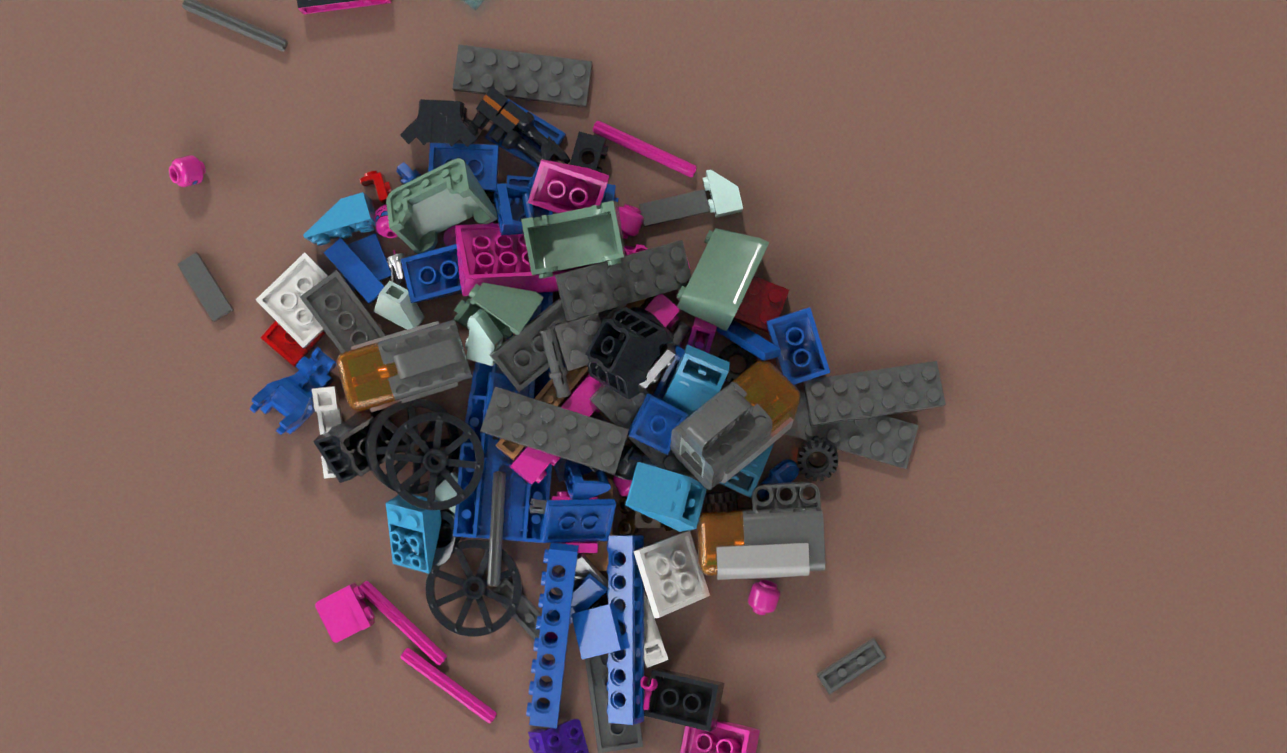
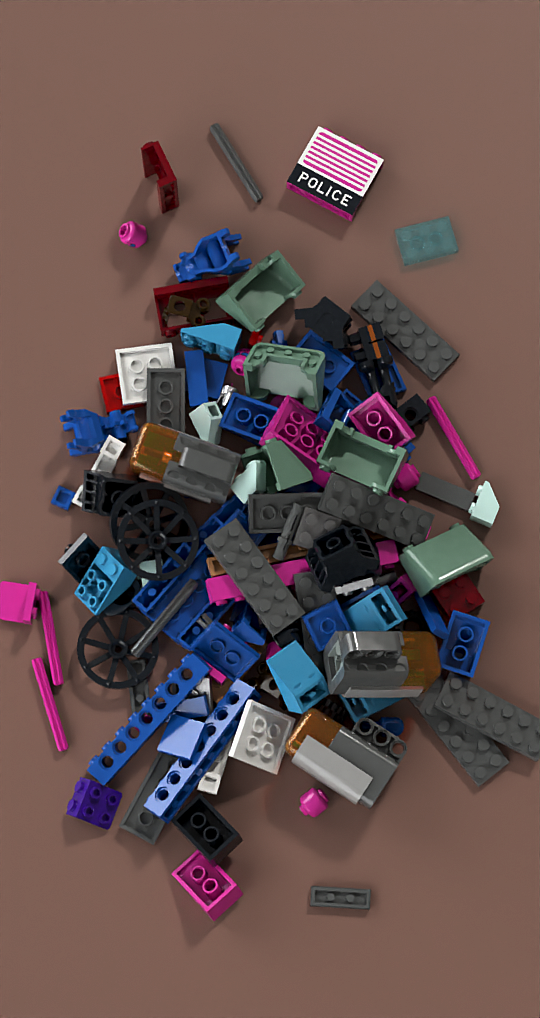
camera: 30 degrees right, 10 degrees down
(180, 100) = (156, 163): none -> dark red window
(205, 287) = (87, 318): dark grey tile -> none
(280, 139) = (212, 257): none -> blue animal
(291, 190) = (194, 290): none -> dark red window
(301, 209) = (192, 310): none -> dark brown piece
(314, 480) = (63, 498): none -> blue tile
(354, 139) = (261, 291): none -> sand green windscreen
(371, 529) = (79, 557): none -> black tile
(648, 690) = (189, 803): dark pink hand -> none
(817, 446) = (410, 737): black tyre -> none

